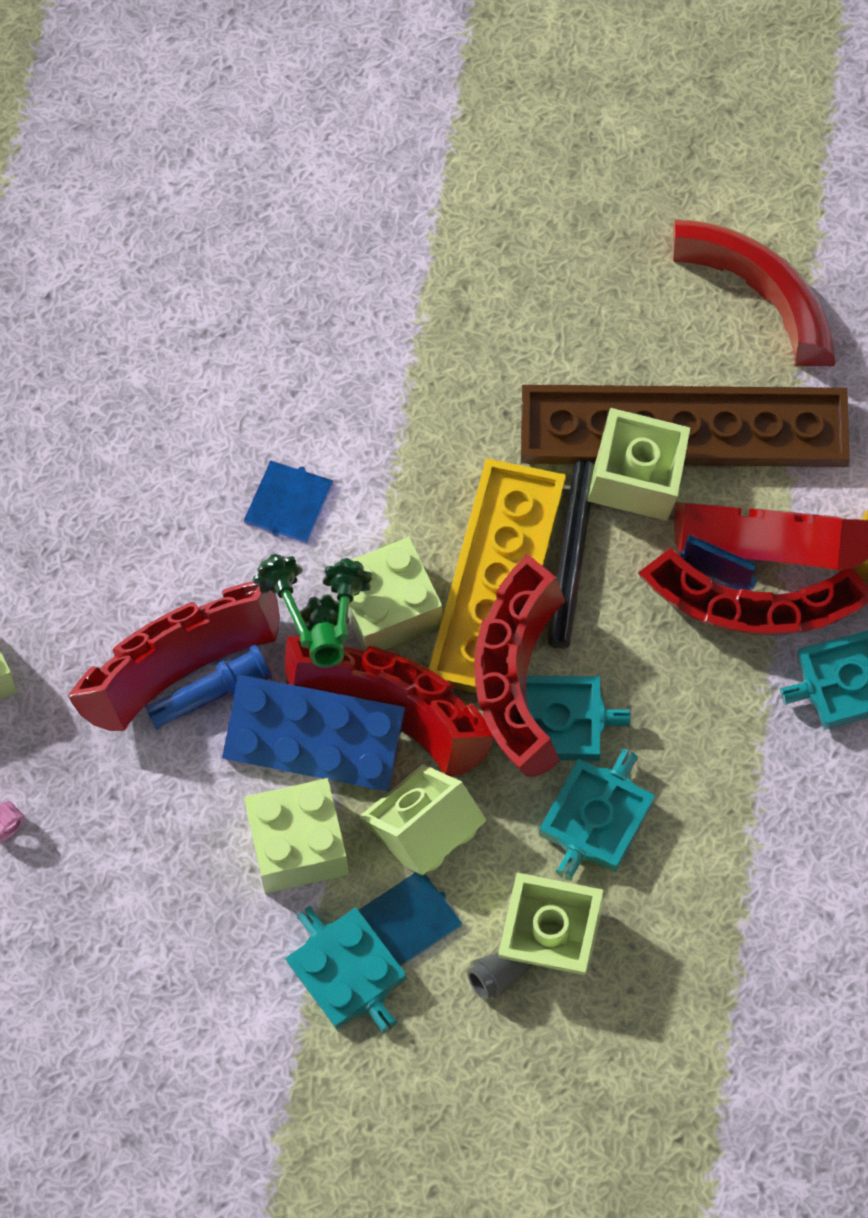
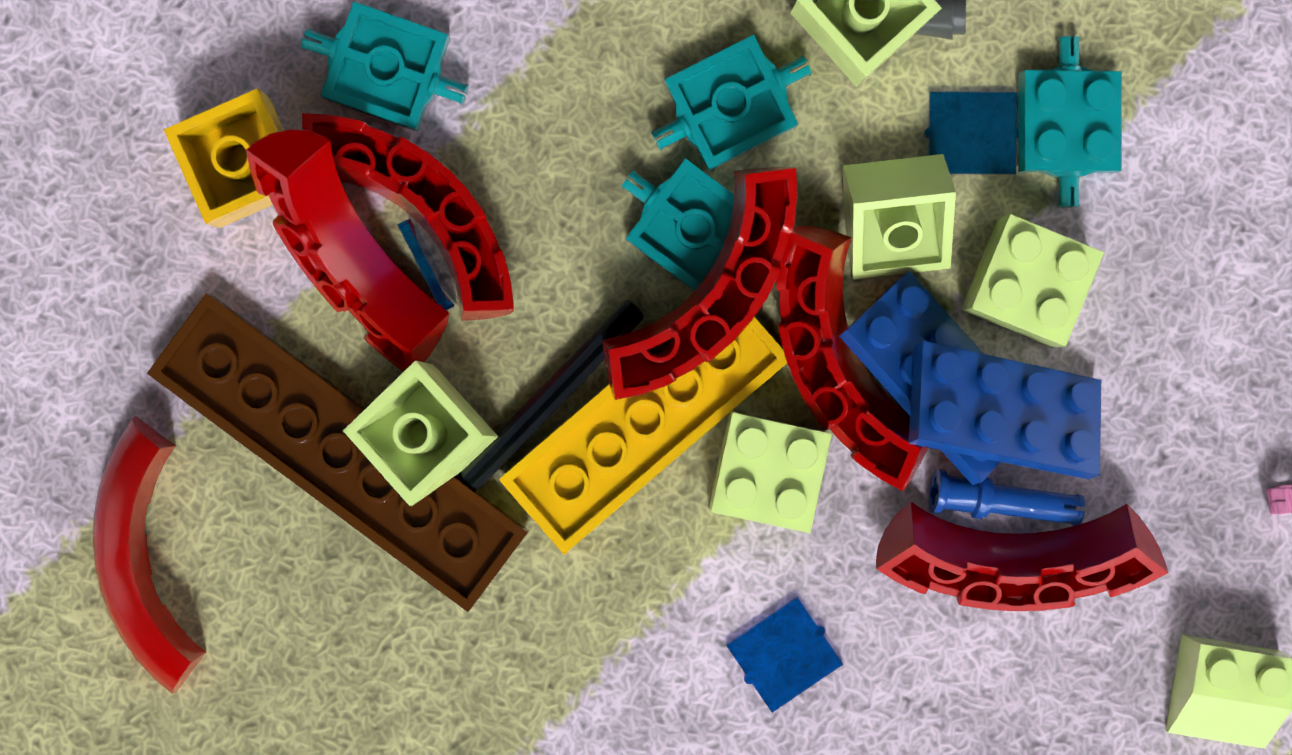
camera: 145 degrees left, 25 degrees up
(253, 732) = (1005, 410): none -> blue plate
(323, 620) = (845, 499): dark green plant -> none

